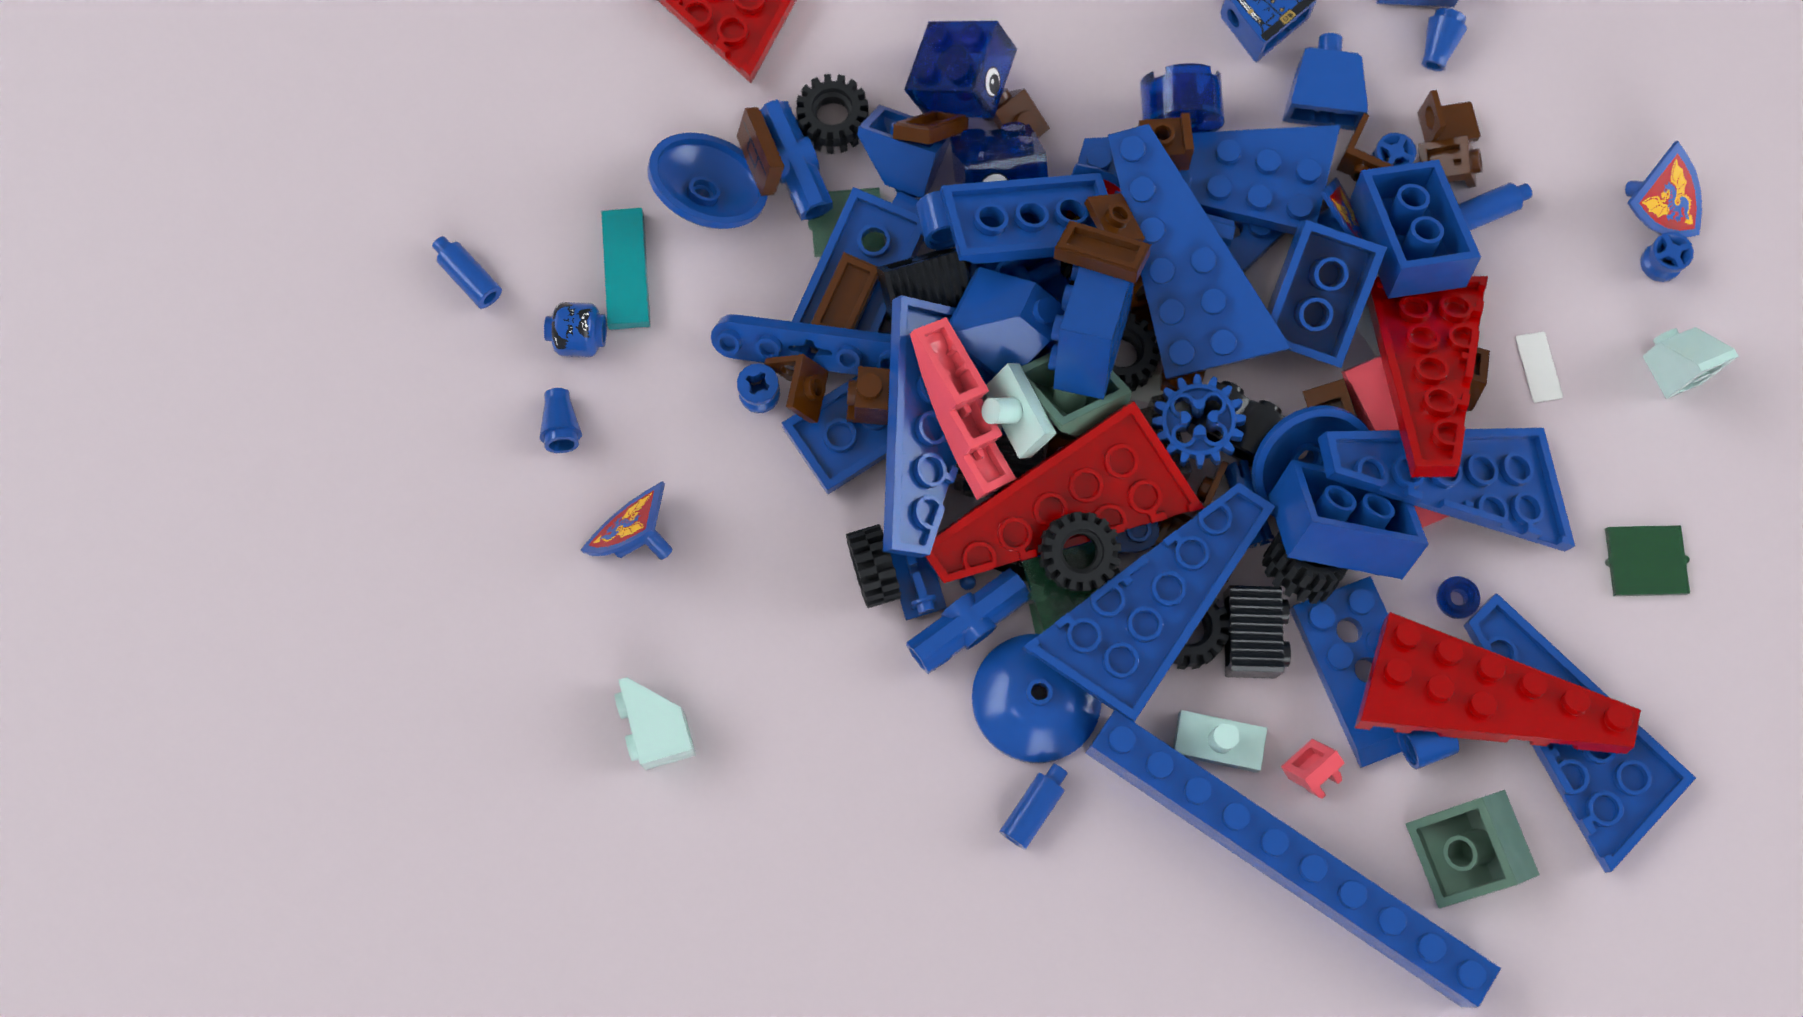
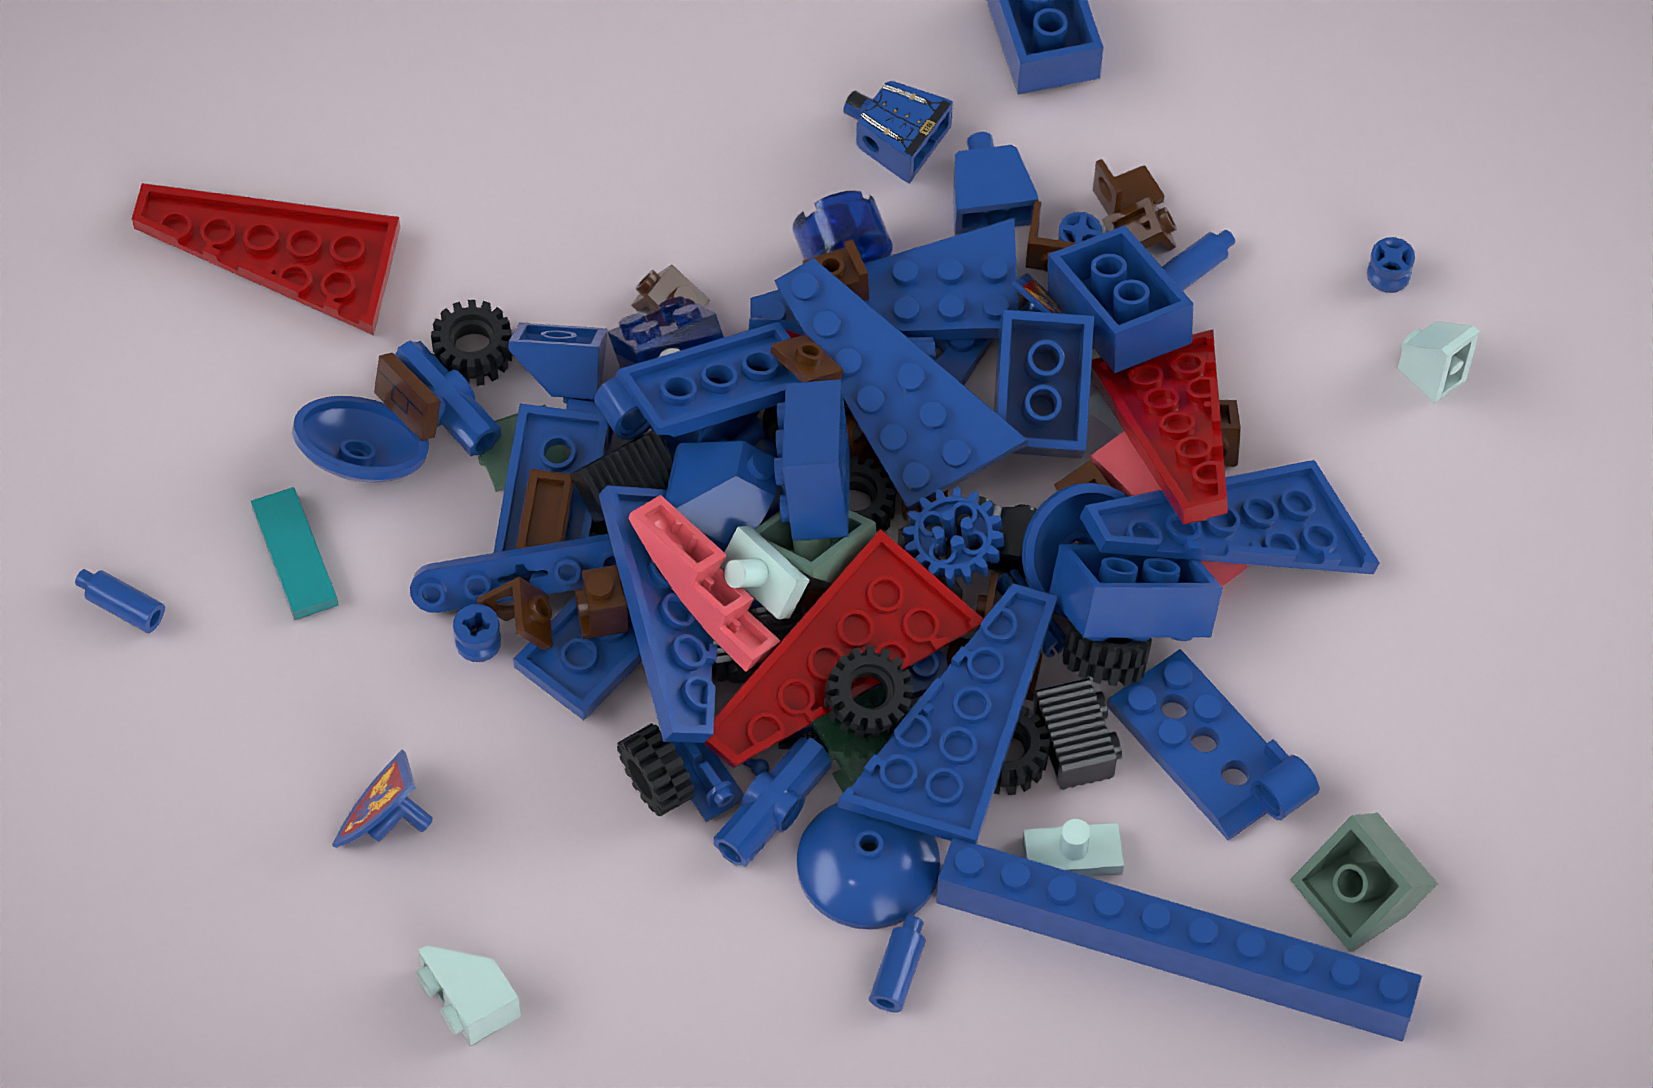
camera: 15 degrees left, 15 degrees down
(559, 423) = (271, 723): blue cone -> none
(576, 329) = (260, 625): blue head -> none
(930, 127) = (584, 324): reddish brown tile -> none
(961, 68) = (598, 261): clear blue brick -> none
(1102, 251) = (803, 388): reddish brown tile -> none
(1313, 766) = (1176, 845): coral tile -> none
(1443, 35) = (1096, 109): blue cone -> none
(1466, 589) = (1277, 635): clear blue plate -> none
(1467, 692) = (1320, 725): red wing -> none
(1539, 367) = (1294, 405): white sticker -> none
(1607, 793) = (1459, 756): blue wing -> none
(1647, 561) = (1461, 563): clear green piece -> none
(1669, 195) = (1373, 203): shield -> none

